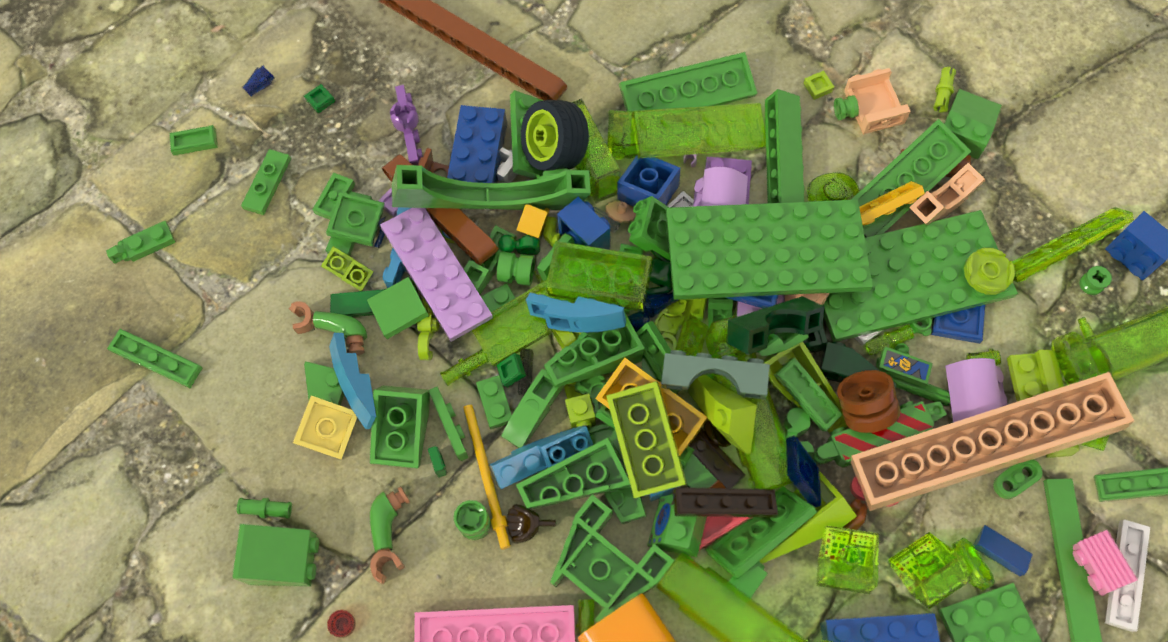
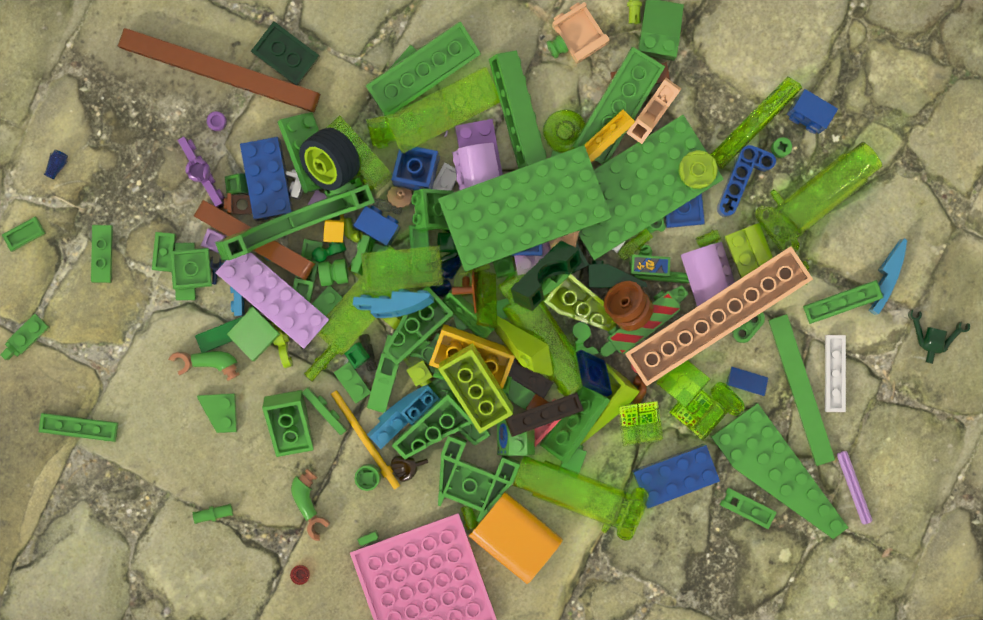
camera: 25 degrees left, 20 degrees up
(275, 556) = (237, 546): bright green slope -> none
(319, 98) = (113, 163): green tile -> none
(325, 427) = (234, 443): light yellow plate -> none
(347, 268) = (201, 310): lime slope -> none
(354, 385) = (246, 407): dark azure slope -> none
(437, 461) = (326, 441): green tile -> none
(442, 151) = (236, 184): none -> bright green slope
(445, 87) = (216, 121): none -> medium lavender tile
(446, 601) = (367, 538): none -> bright green tile
(543, 40) = (285, 53): none -> dark green plate
(670, 324) = (467, 289): none -> dark orange shield
(748, 377) = (536, 322): sand green arch -> none
(808, 394) = (583, 312): bright green plate -> none
(818, 85) = (529, 28): lime tile -> none
(917, 524) = (684, 383): none -> clear neon green tile
(1048, 287) = (741, 182): none -> blue beam
(1103, 563) = (815, 373): bright pink brick -> none

